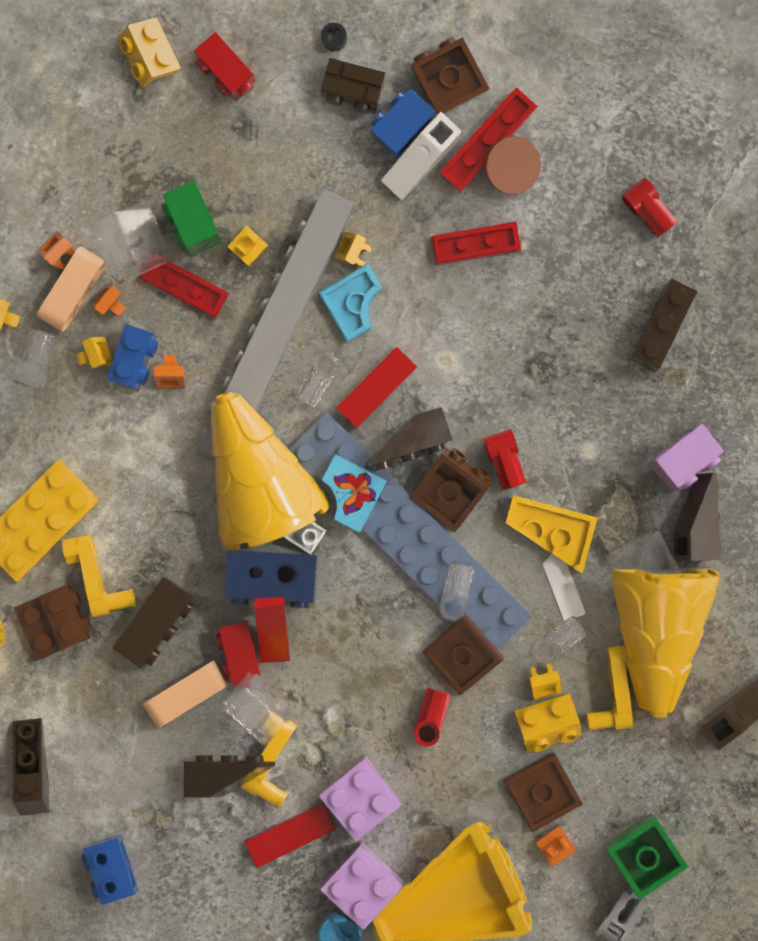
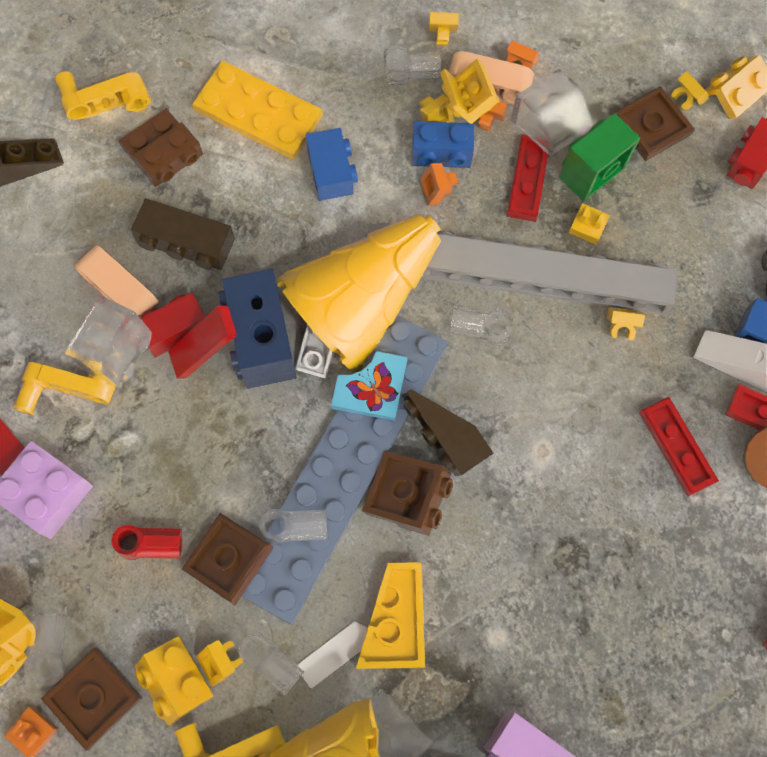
camera: 70 degrees right, 15 degrees down
(83, 551) = (234, 157): yellow beam -> none
(93, 318) = (469, 92): none -> yellow bracket
(120, 468) = (330, 164): none -> blue brick
(141, 99) = (692, 89): none -> yellow tile
(162, 148) = (656, 122): none -> reddish brown tile
(218, 778) = (33, 335): dark brown slope -> none
(350, 301) = (570, 336): medium azure tile -> none
(376, 387) = (490, 386): red tile -> none
(503, 453) = (465, 538): red piece -> none
(663, 325) = (670, 679): dark brown brick -> none

